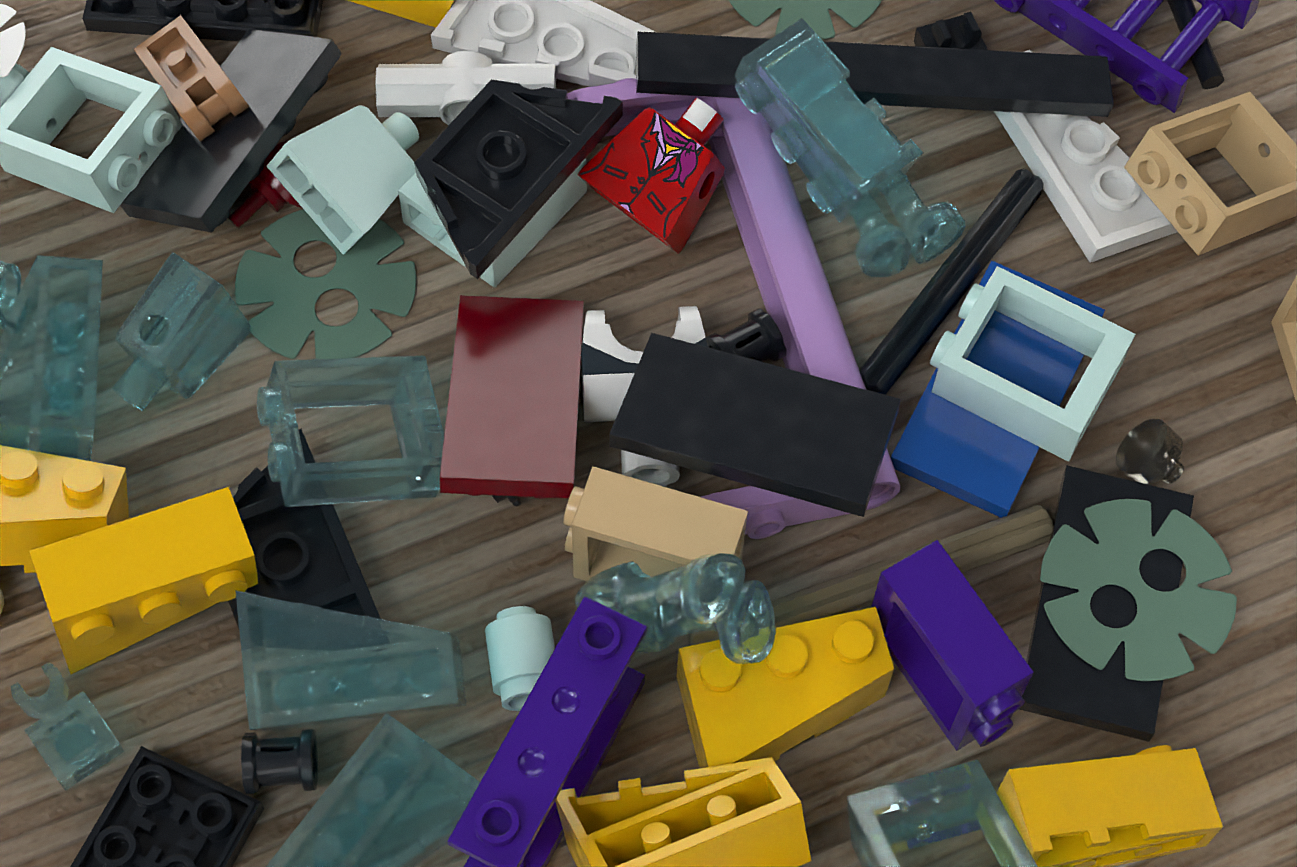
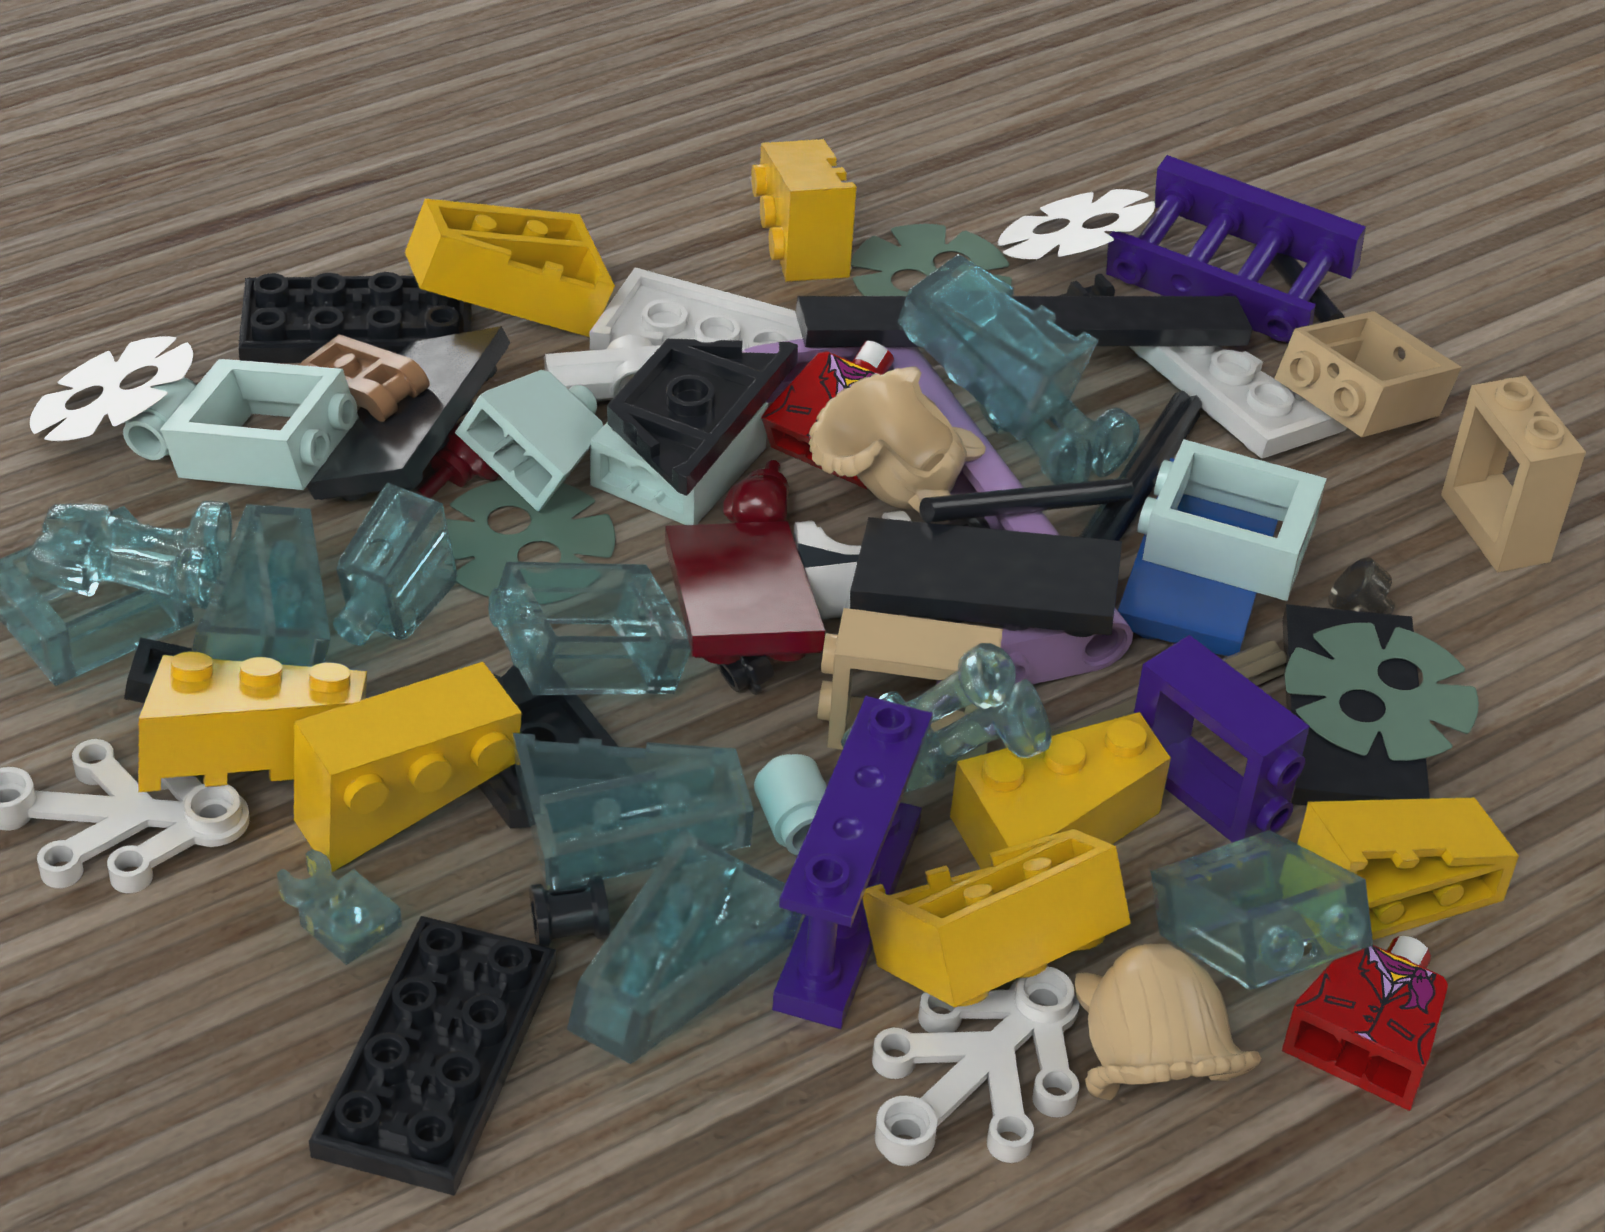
camera: 10 degrees left, 20 degrees down
(563, 265) = (758, 497): none -> dark red piece
(696, 236) = (892, 439): none -> tan hair
(821, 318) = (1025, 500): none -> black bar

